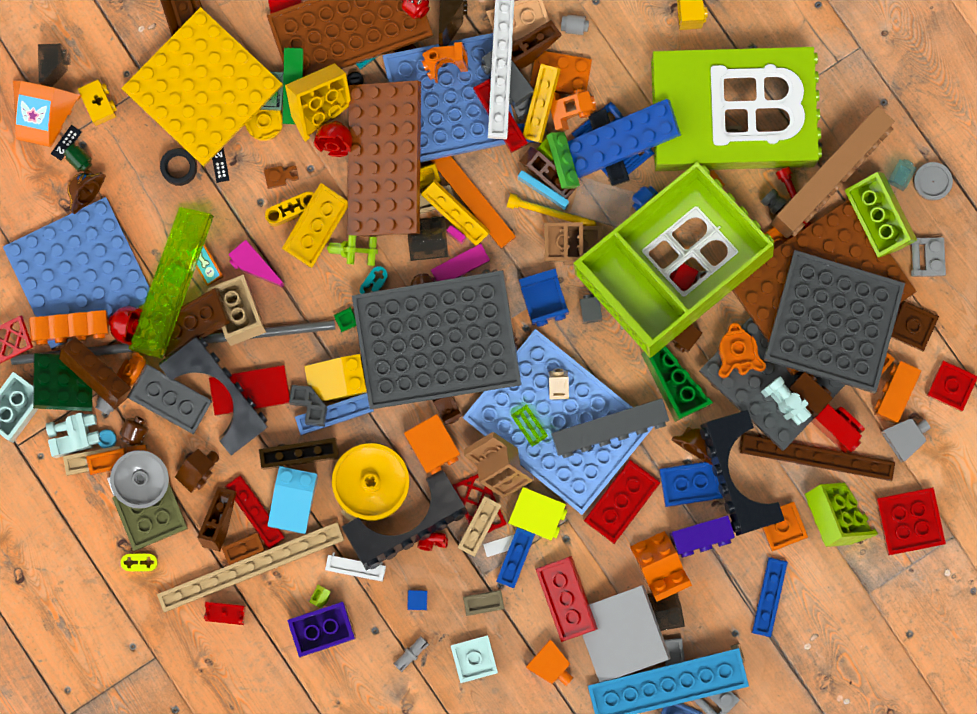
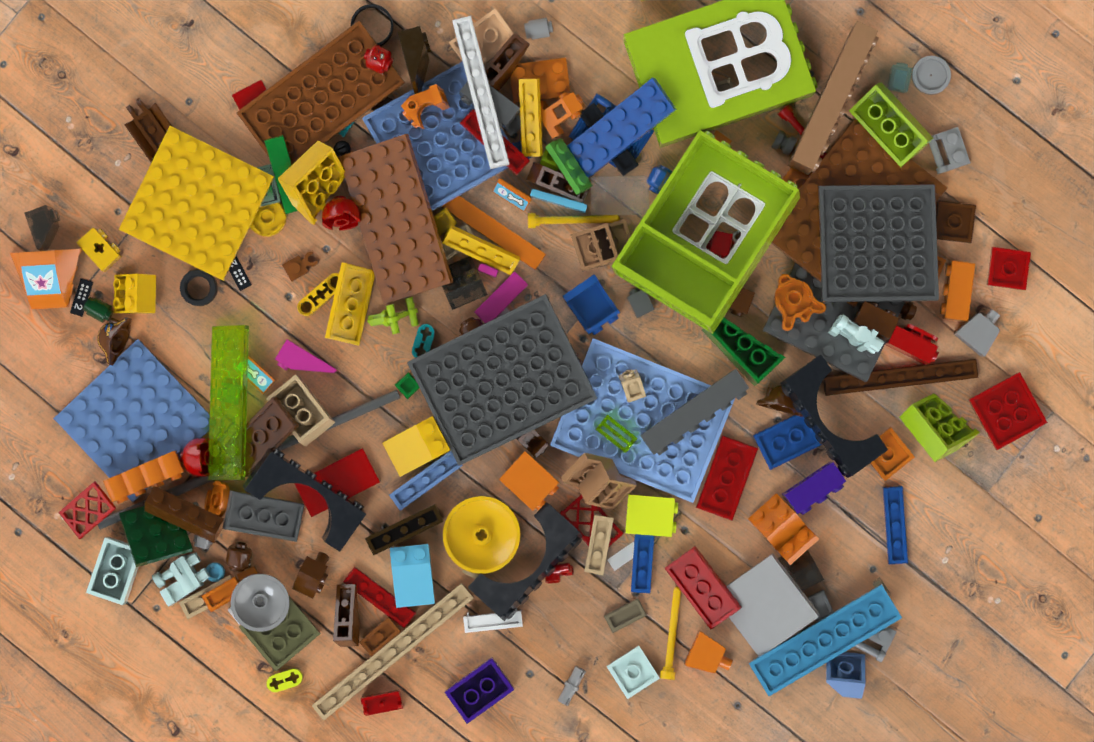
camera: 20 degrees left, 5 degrees up
(116, 153) = (134, 293): none -> yellow slope
(307, 397) = (394, 472): dark grey tile -> none
(320, 596) = (467, 659): lime plate -> none
(417, 600) = (561, 632): blue tile -> none
(501, 171) = (512, 194): none -> slope
(508, 668) = (668, 671): none -> yellow piece
(844, 396) = (908, 311): none -> reddish brown plate

